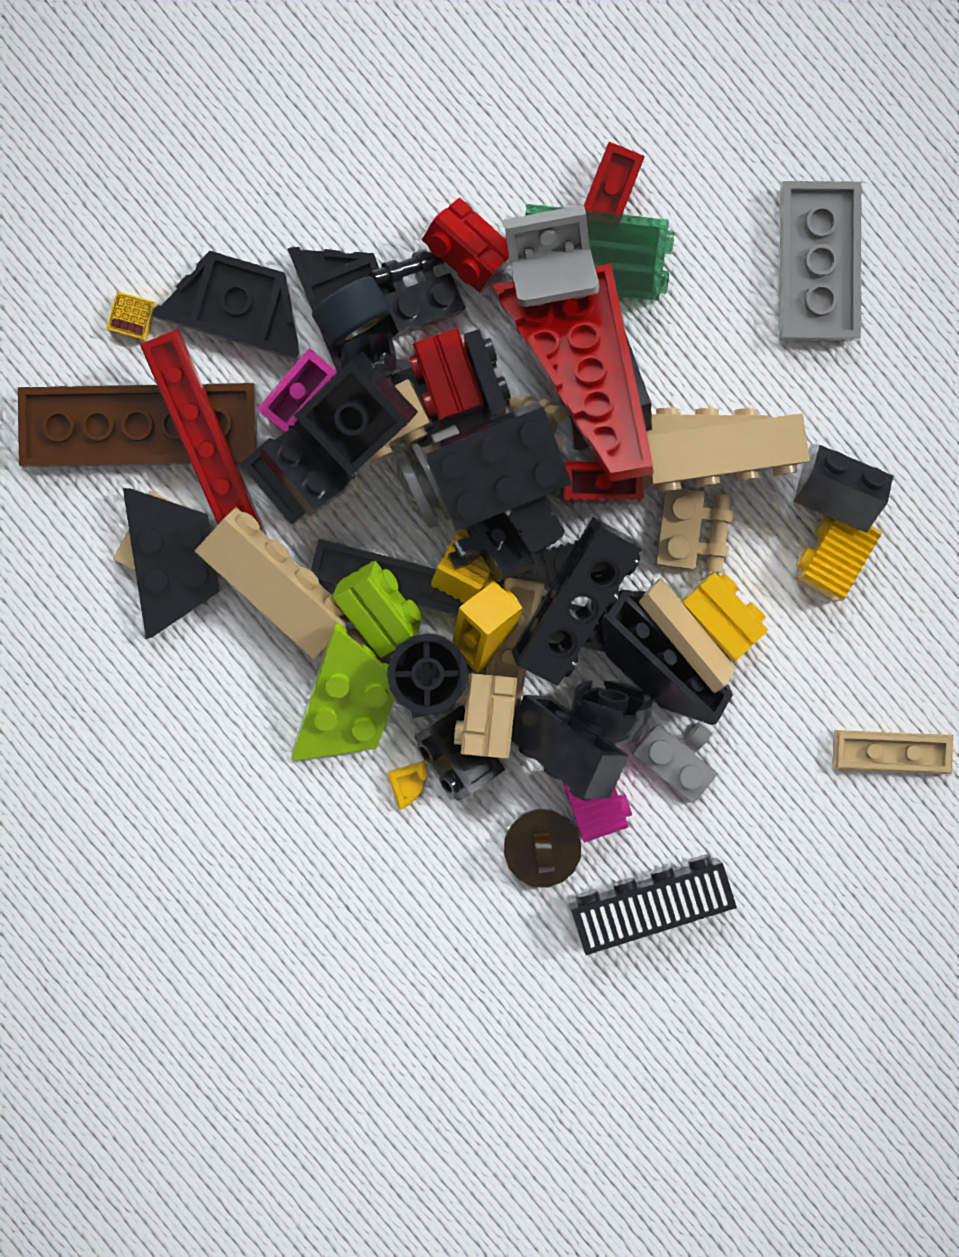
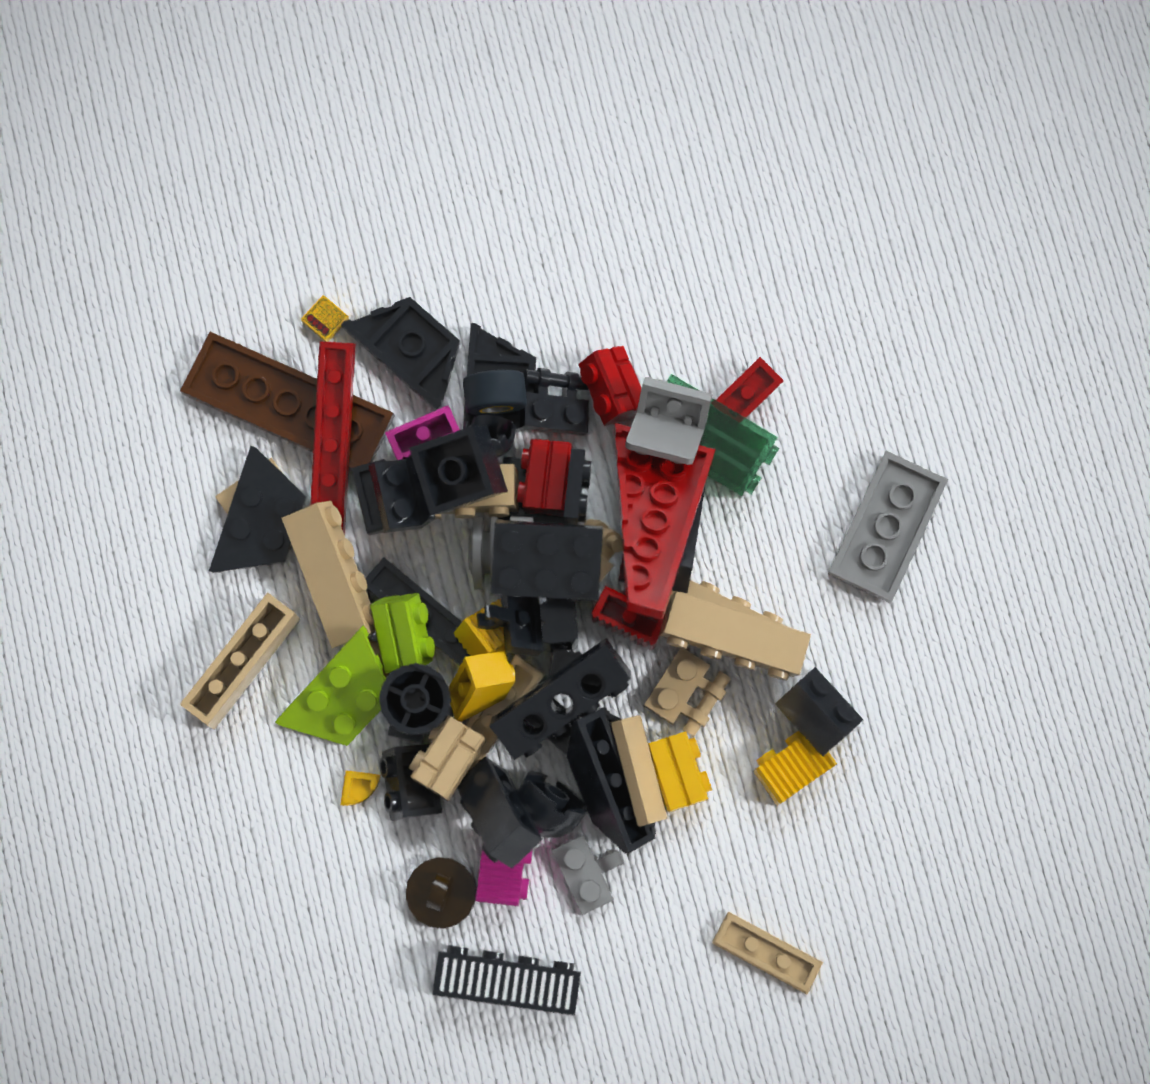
camera: 30 degrees right, 10 degrees down
(225, 717) = (240, 661): none -> tan brick

